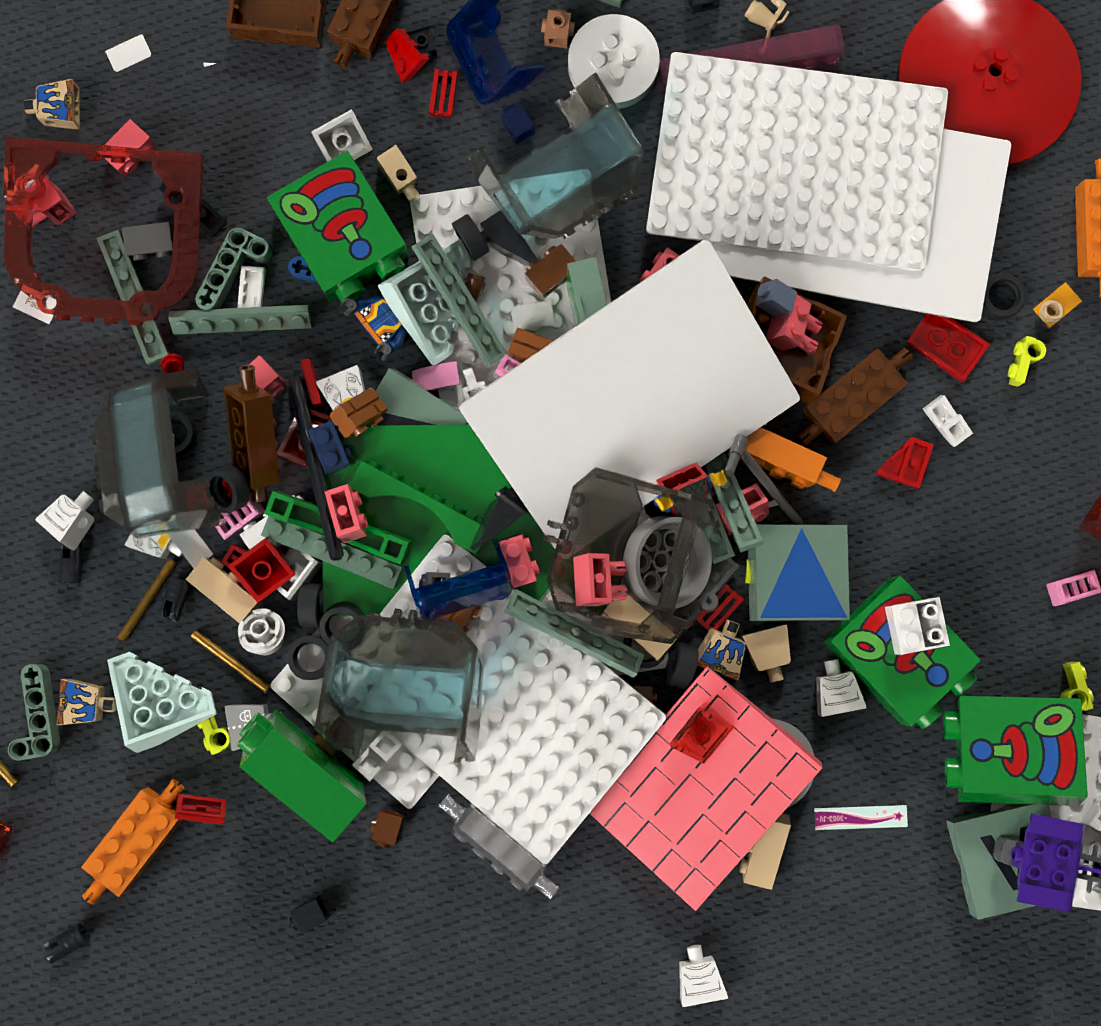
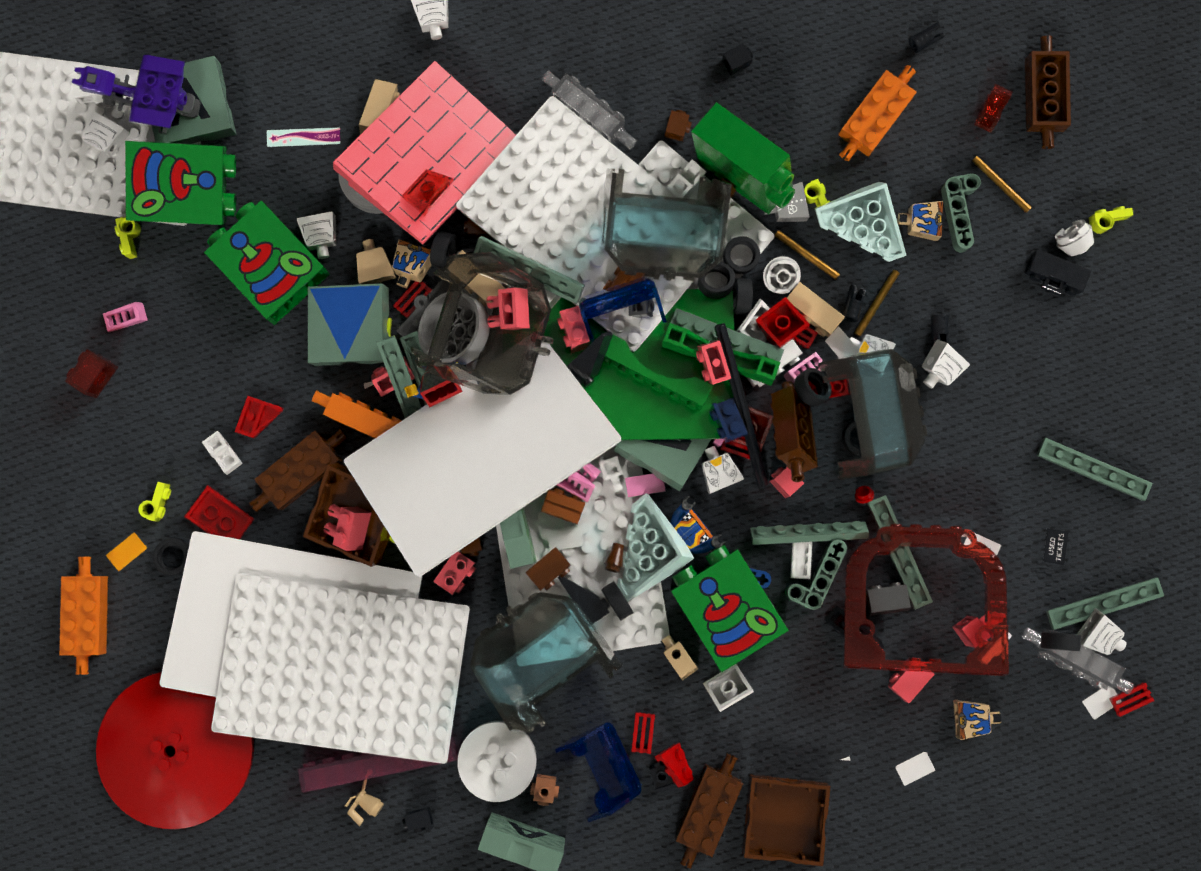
camera: 175 degrees right, 0 degrees up
(200, 812) = (830, 134): red tile -> none
(311, 379) = (748, 481): red tile -> none
(358, 413) = (706, 445): dark orange brick -> none
(459, 300) = (625, 546): sand green plate -> none
(517, 123) = (579, 705): clear blue brick -> none
(739, 451) = (394, 415): dark grey bar -> none
(776, 298) = (361, 545): sand blue brick -> none
(917, 626) = (254, 276): white slope -> none
(1057, 309) = (126, 544): tan plate -> none

